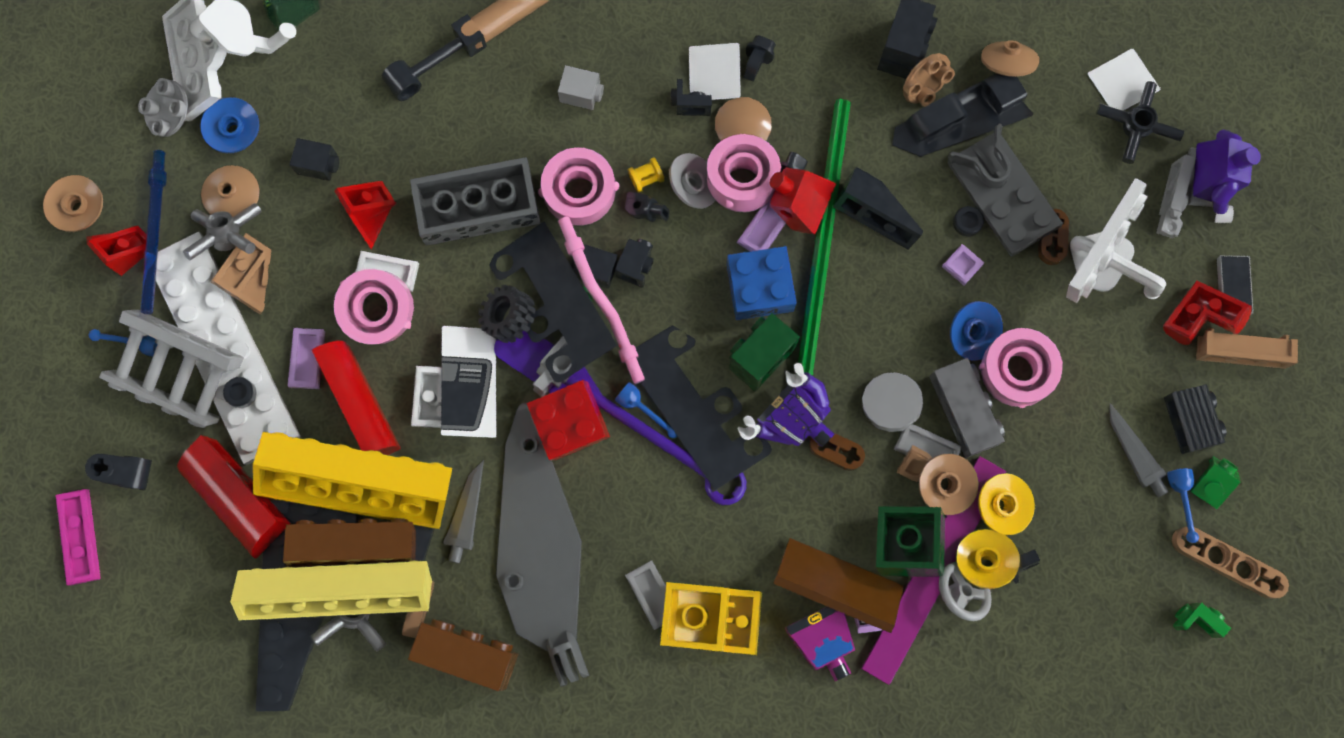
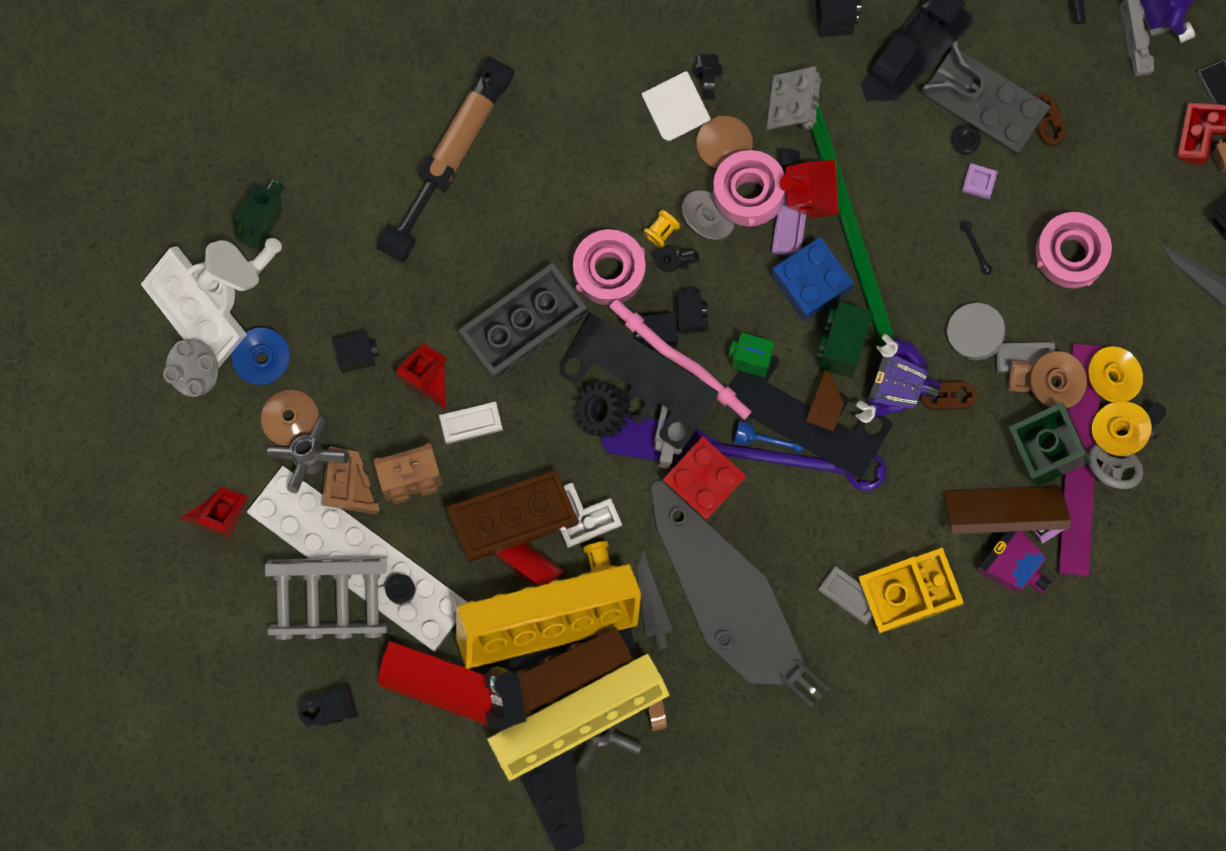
camera: 25 degrees left, 0 degrees up
(63, 196) = (141, 487): medium nougat dish -> none
(77, 537) = (318, 784): dark pink tile -> none
(146, 346) = (295, 590): blue hinge -> none
(157, 180) = (219, 437): clear blue bar -> none
(272, 540) = (505, 699): none -> black leg
(300, 289) = (408, 474): none -> medium nougat hinge
(304, 368) = (439, 533): lavender tile -> none
(350, 300) = (482, 433): bright pink piece -> none
(369, 371) = (512, 516): none -> reddish brown tile
(436, 448) = (598, 556): none -> yellow bush
(464, 654) = (718, 719): reddish brown brick -> none
(468, 383) = (598, 486): sticker -> none
(580, 88) = (563, 176): light grey brick -> none
(671, 326) = (751, 354): none -> green brick
(690, 104) = (671, 145): black bracket -> none
(717, 404) = (826, 404): none -> reddish brown slope
(826, 112) = (794, 99): none -> light grey hinge
(877, 208) = (877, 164): black slope -> none
(927, 79) = (871, 27): medium nougat dish -> none
(930, 300) = (966, 227): none -> black hinge
(967, 407) = (1043, 306): flat silver brick -> none
(986, 329) = (1026, 228): blue dish -> none
(1107, 255) = (1101, 115): white plate -> none

